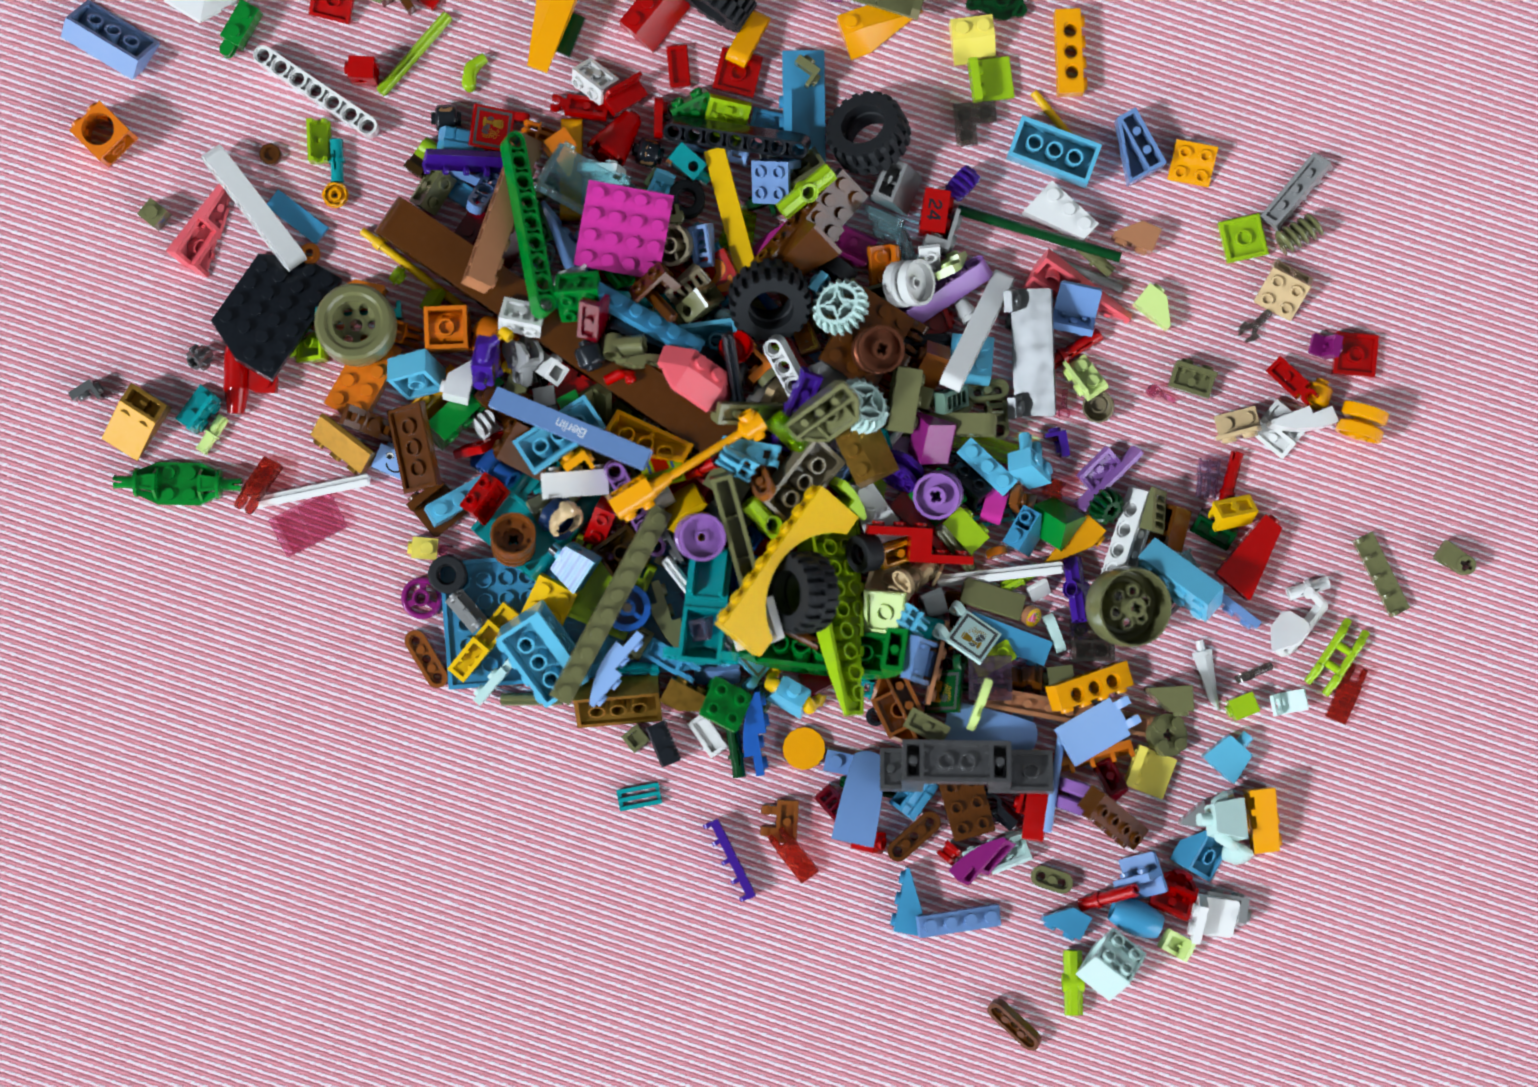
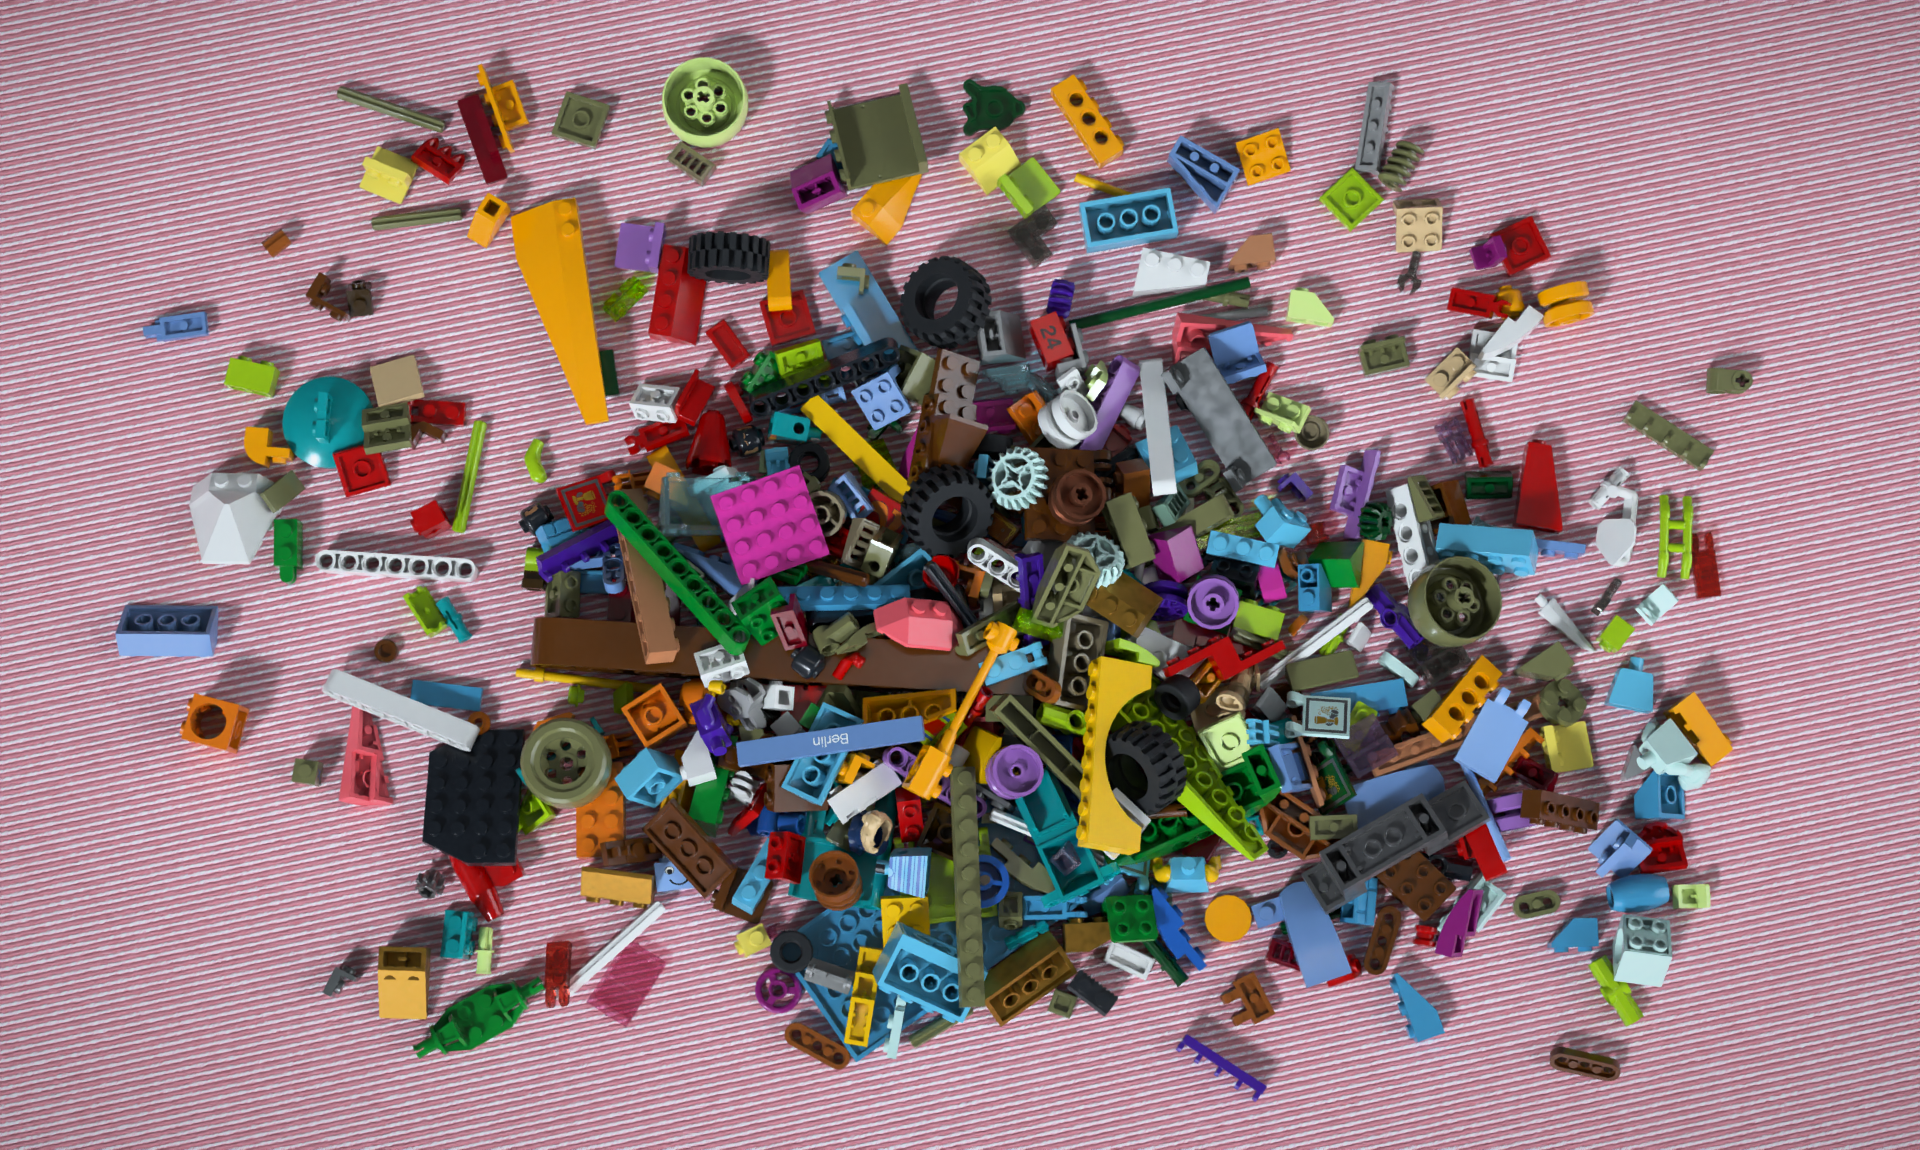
camera: 30 degrees left, 5 degrees down
(329, 191) = (464, 650): light orange plate -> none
(607, 675) = (1003, 956): light blue slope -> none
(654, 275) = (823, 557): reddish brown bracket -> none
(657, 793) = (1083, 1070): teal tile -> none
(734, 461) = (1004, 681): medium azure arm -> none
(794, 856) = (1281, 1026): clear red hinge -> none
(816, 182) = (926, 376): lime piece -> none
(958, 920) = (1472, 995): medium blue plate -> none
(979, 704) = (1371, 778): yellowish green tile -> none
(1031, 616) = (1367, 666): tile -> none
(1100, 899) = (1596, 893): red pin -> none
(1154, 390) = (1354, 388): clear pink hand -> none
(1212, 917) = (1709, 849): white bracket -> none
(1233, 512) = (1497, 458): yellow hinge -> none
(1244, 913) = (1733, 828): light grey bracket -> none

